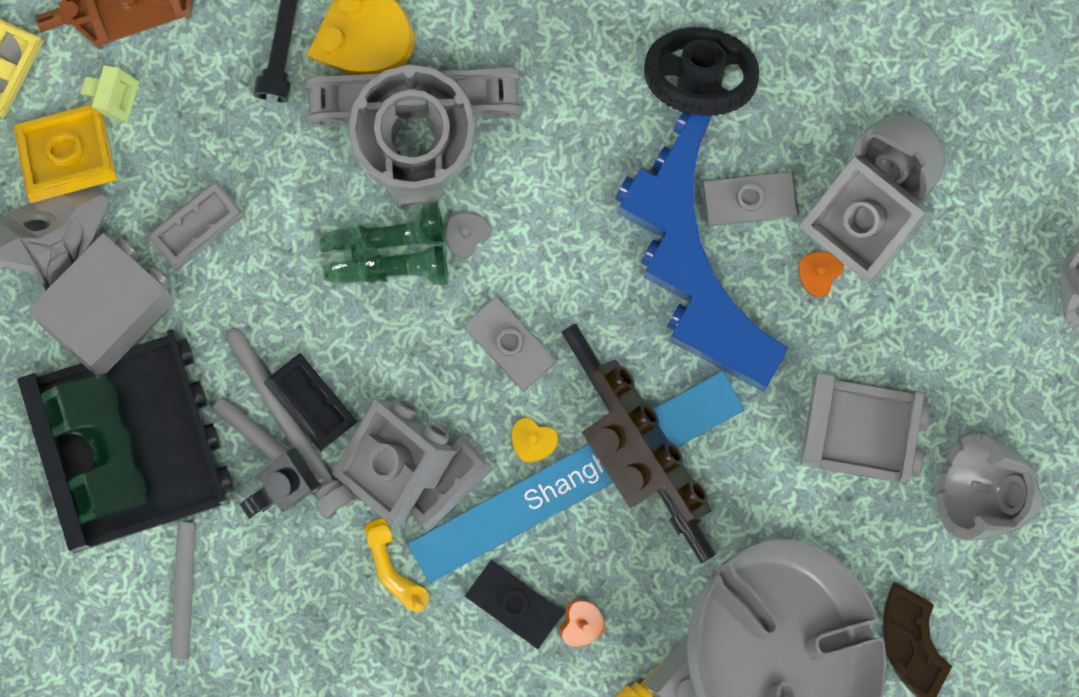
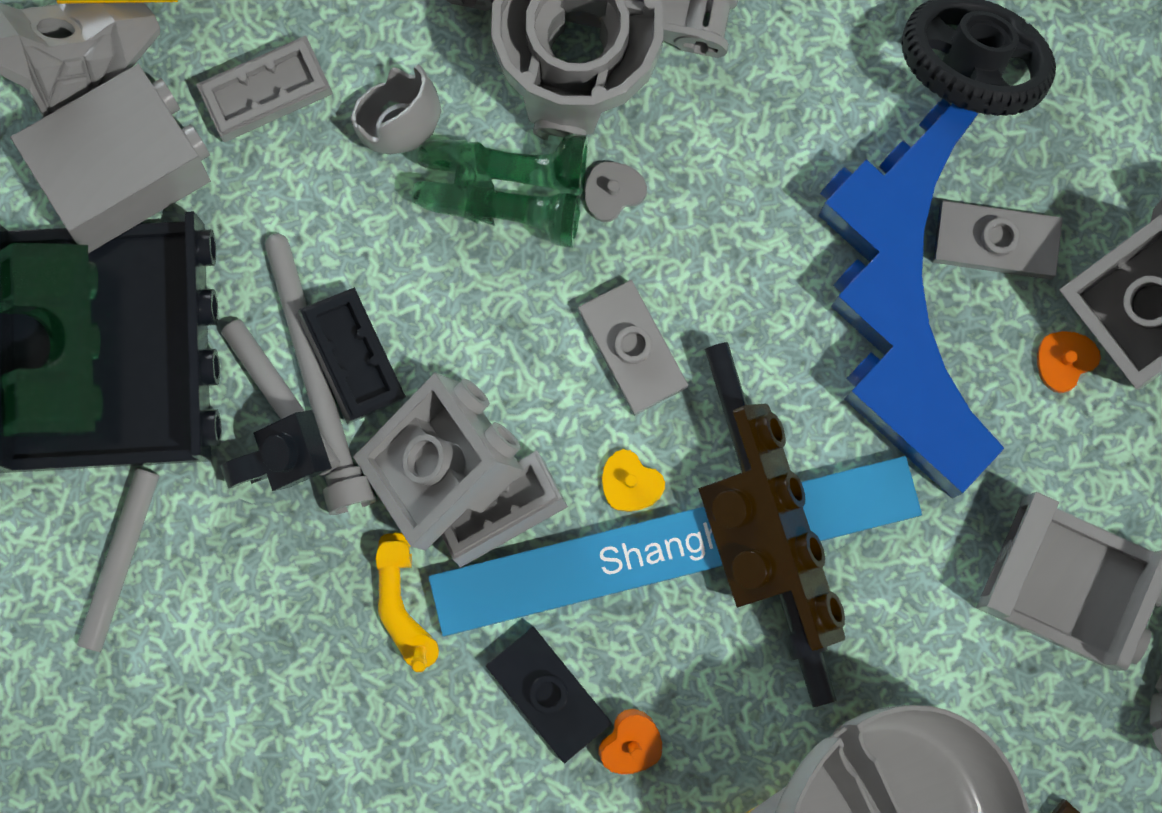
camera: 15 degrees right, 0 degrees up
(308, 231) = (415, 114): none -> light grey hair

